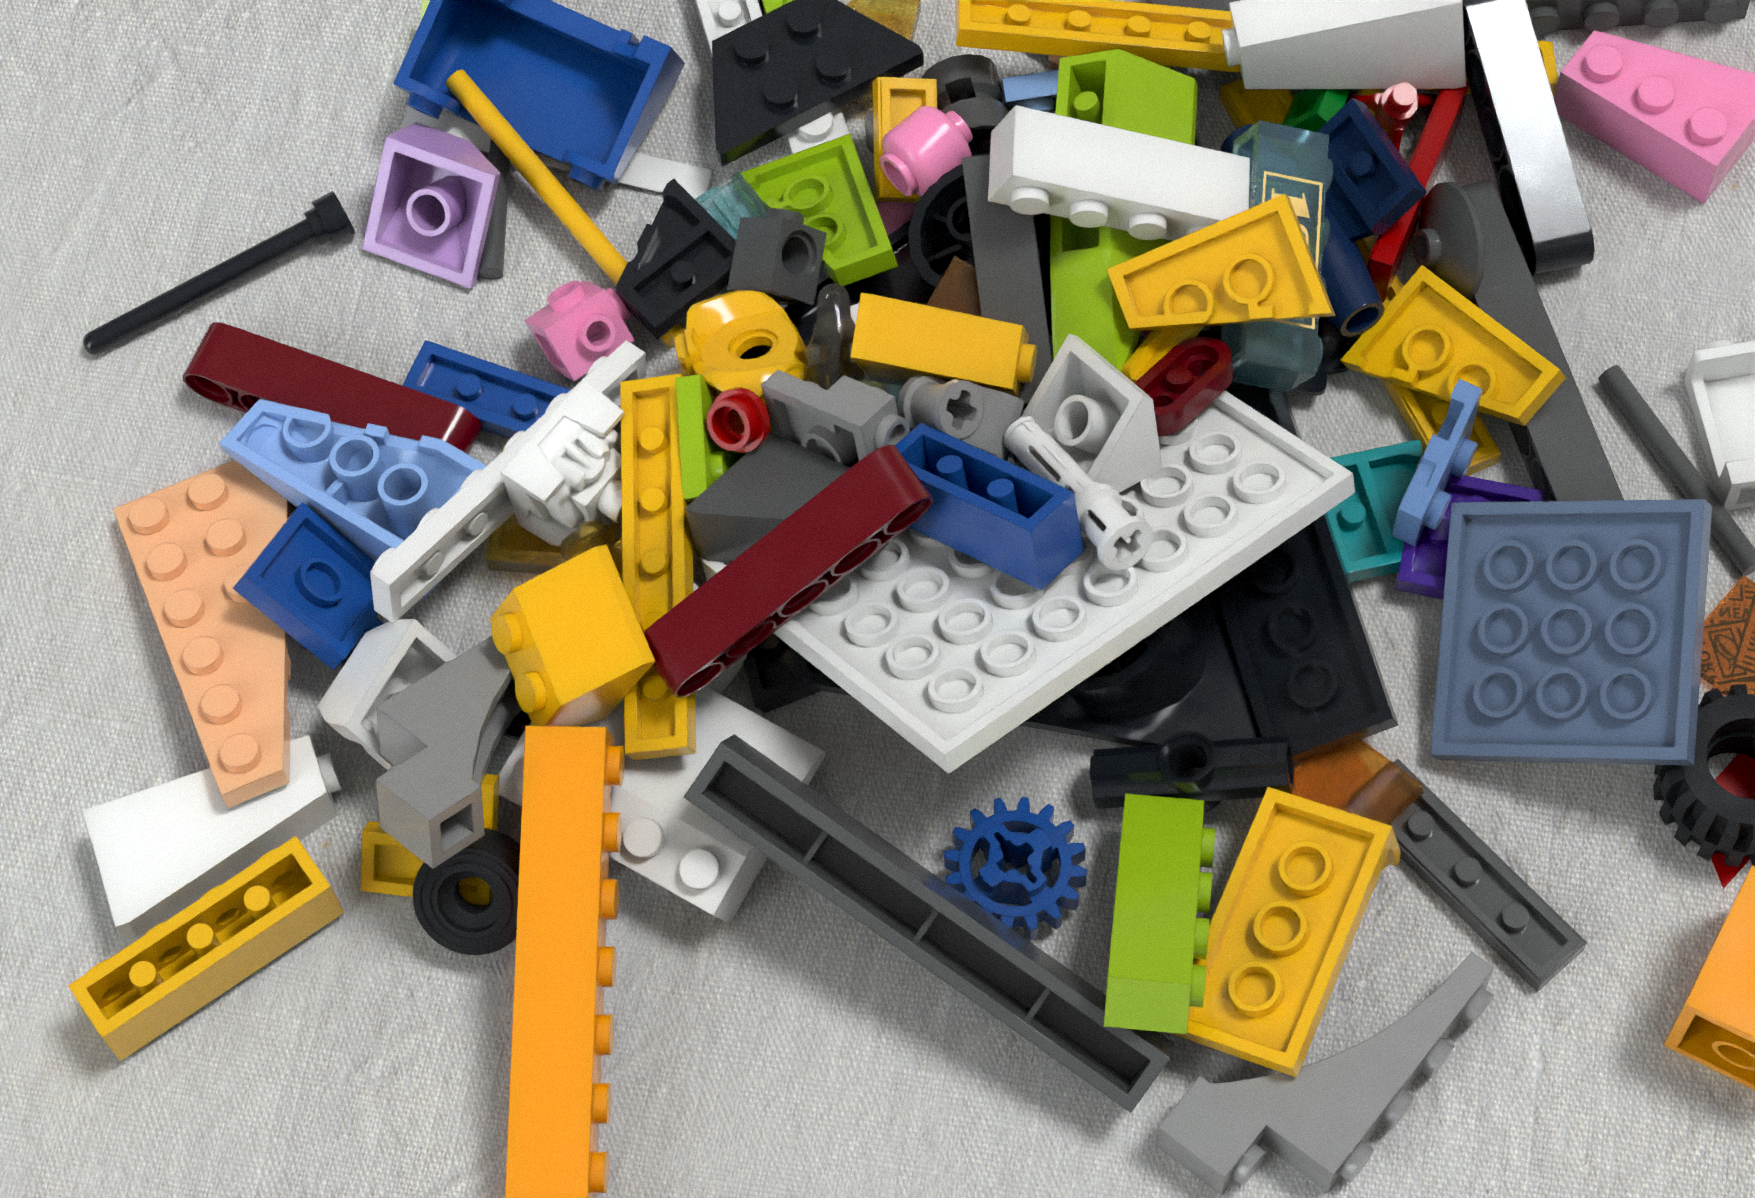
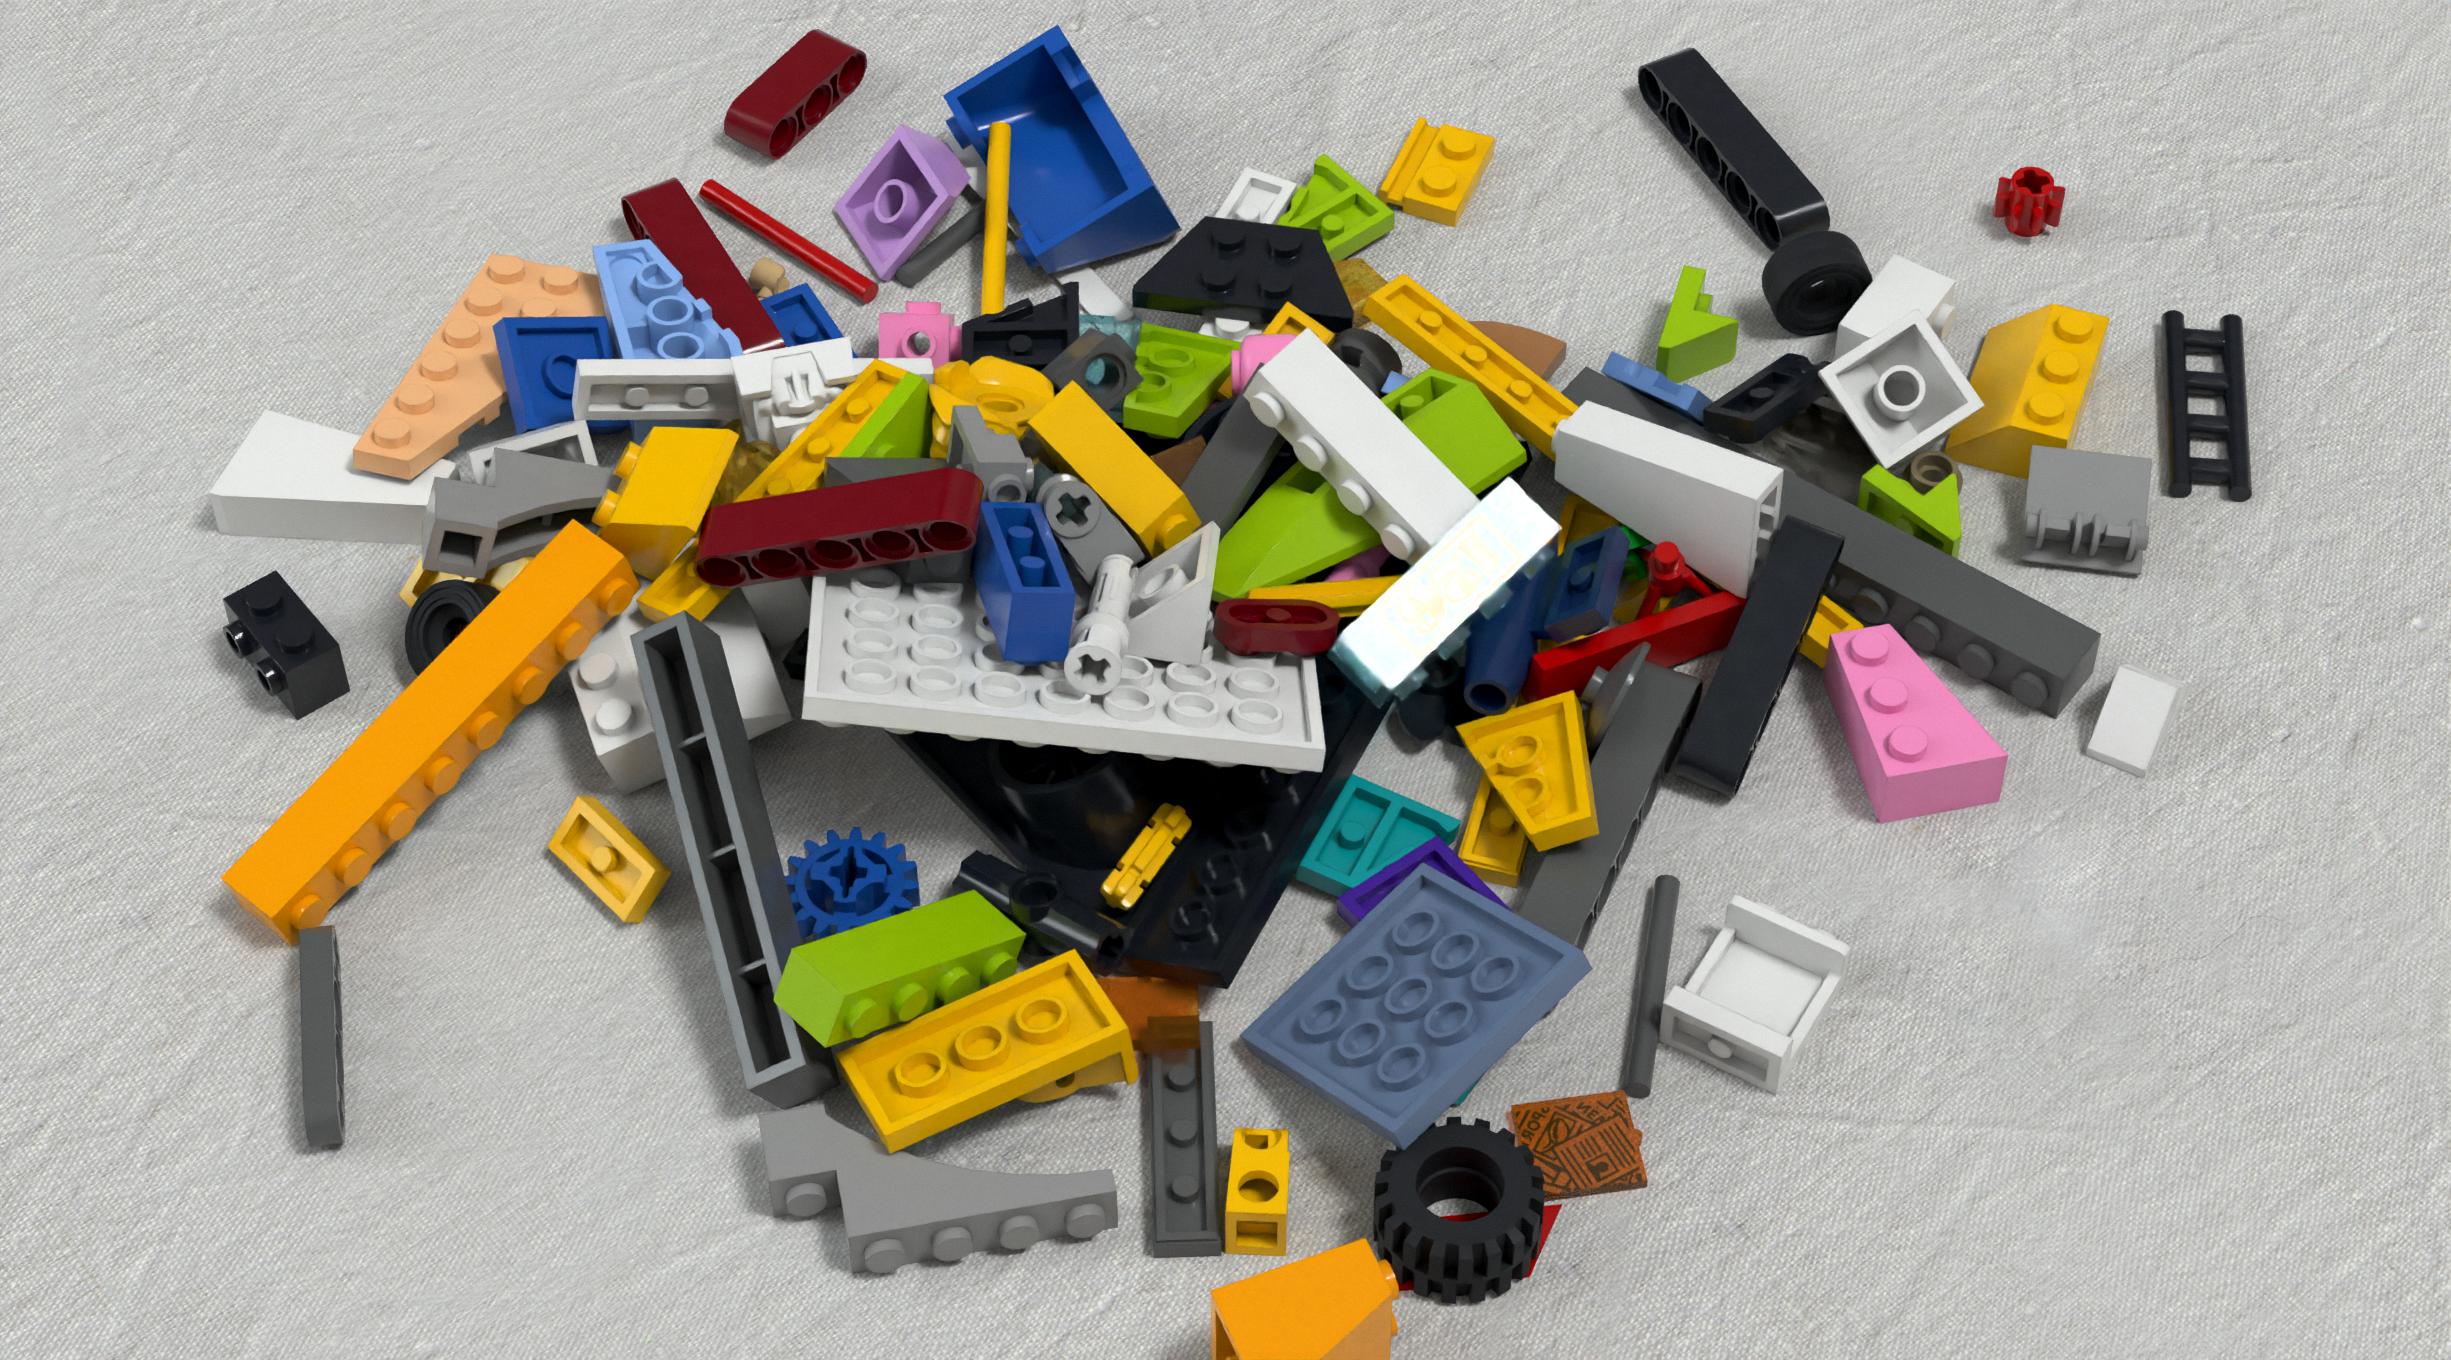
camera: 35 degrees right, 15 degrees down
(206, 948) = (231, 545): yellow brick -> none
(229, 165) = (795, 94): none -> dark red beam
(320, 1014) = (285, 645): none -> black brick
(321, 223) = (821, 170): black piece -> none
(355, 309) = (789, 241): none -> red bar
(380, 358) = (768, 278): none -> tan hand
(726, 425) = (921, 426): red plate -> none
(792, 993) = (609, 859): none -> yellow plate
(1224, 658) = (1145, 856): none -> yellow axle
(1225, 274) = (1375, 560): yellow wing -> none
(1445, 455) = (1434, 826): medium blue wing -> none
(1574, 872) = (1258, 1192): none -> yellow leg

